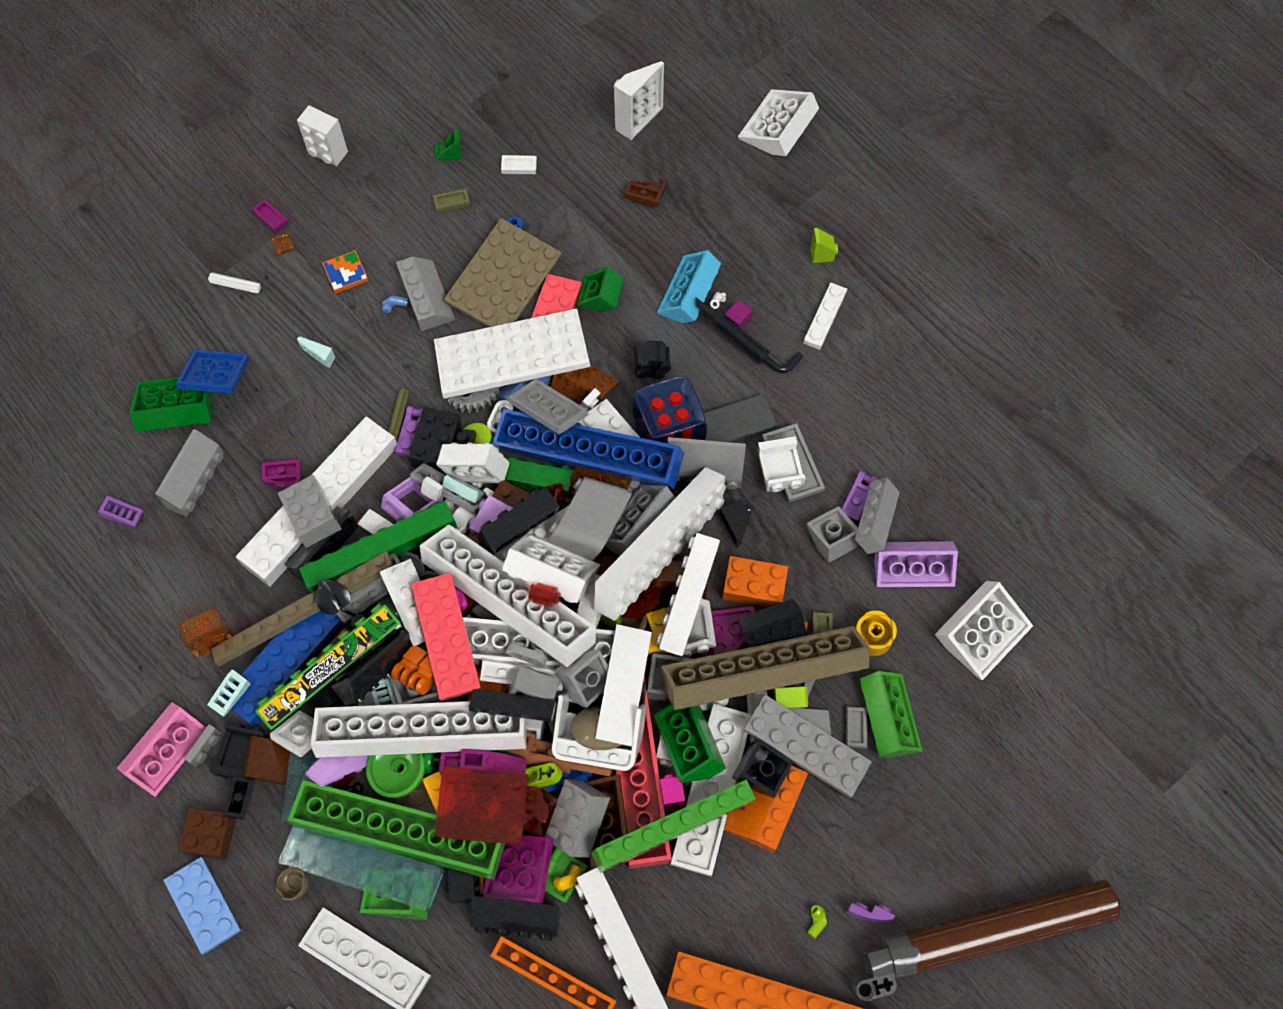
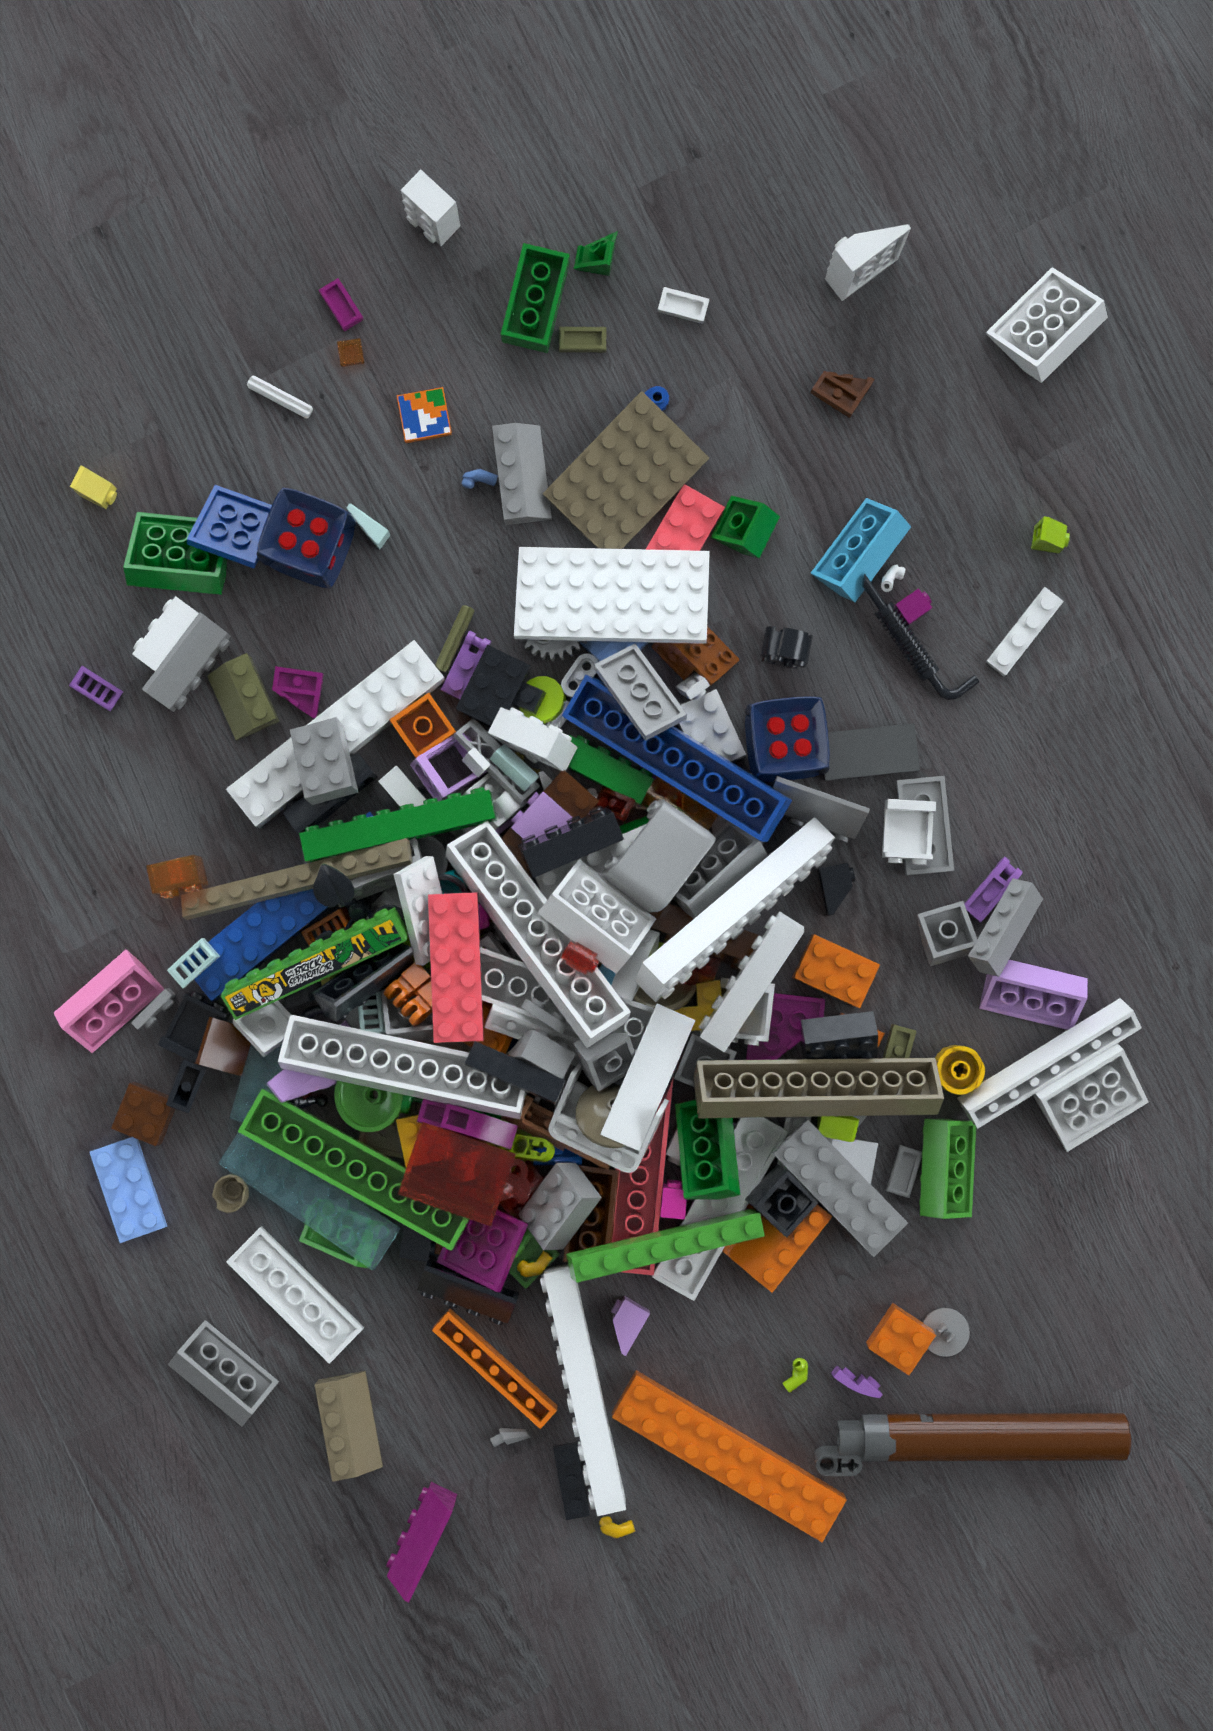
camera: 10 degrees right, 20 degrees up
(99, 368) = (94, 488): none -> light yellow slope
(166, 452) = (164, 633): none -> white brick
(239, 491) = (242, 697): none -> olive slope
(268, 363) = (306, 537): none -> dark blue piece
(383, 474) = (422, 725): none -> orange brick
(410, 179) = (535, 298): none -> green brick
(660, 910) = (628, 1322): none -> lavender slope
(896, 865) = (900, 1339): none -> orange brick
(931, 853) = (950, 1330): none -> light grey piece
(944, 611) = (1049, 1062): none -> white brick

